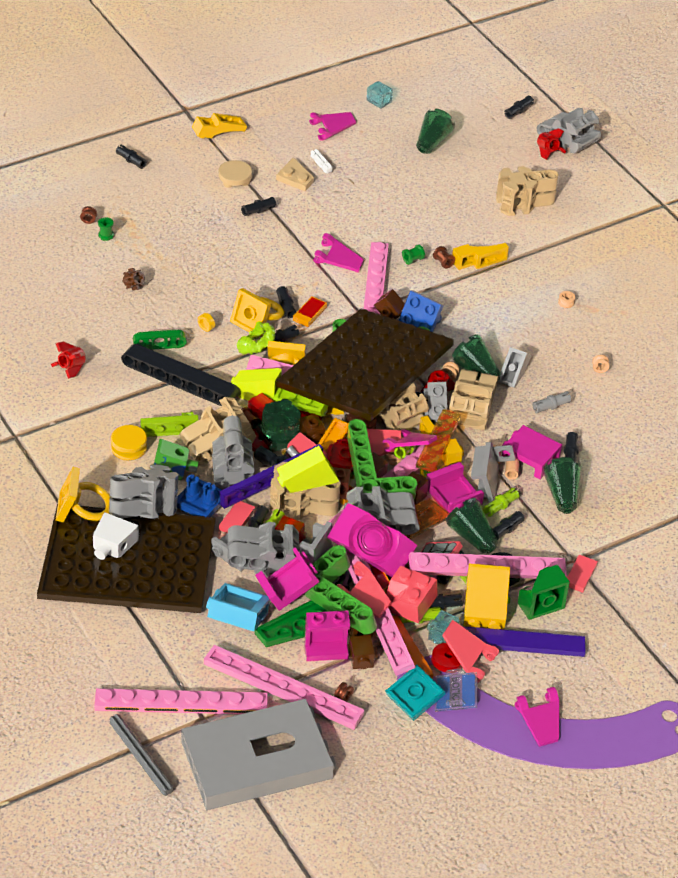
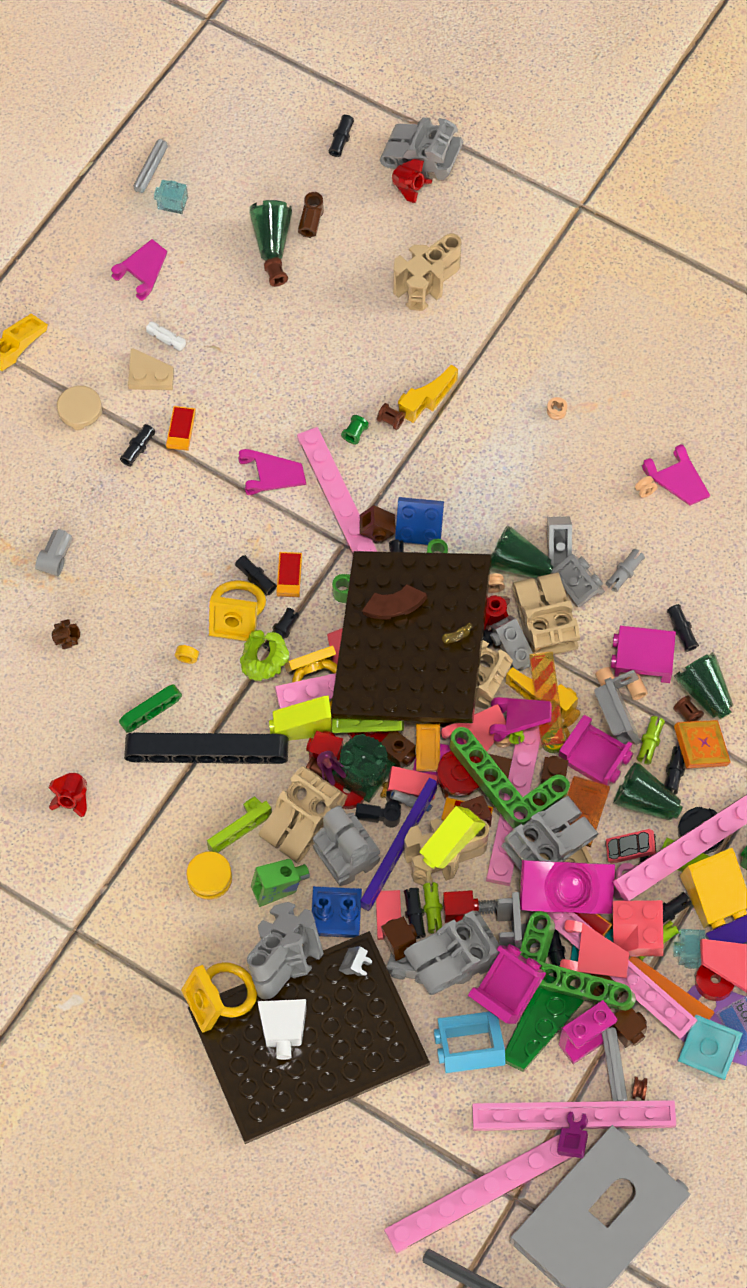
camera: 25 degrees left, 20 degrees up
(157, 239) = (52, 558): none -> light grey piece
(190, 524) = (353, 961): none -> light grey tile
(230, 519) = (398, 936): none -> reddish brown brick
(255, 409) = (327, 762): none -> flat silver piece
(271, 694) = (573, 1139): none -> magenta plate
(294, 210) = (181, 428): none -> red tile
(335, 668) = (614, 1064): none -> light grey axle
(364, 338) = (394, 604): none -> copper tile
(377, 76) = (150, 166): none -> light grey axle
(394, 367) = (458, 635): none -> clear yellow piece
(420, 157) = (275, 271): none -> copper bush
(469, 136) = (311, 214): none -> reddish brown piece
(513, 392) = (578, 580): none -> light grey bracket
(537, 518) = (702, 744): none -> tile
(541, 496) = (688, 709): none -> copper bush
(629, 371) = (679, 478): none -> dark pink flag

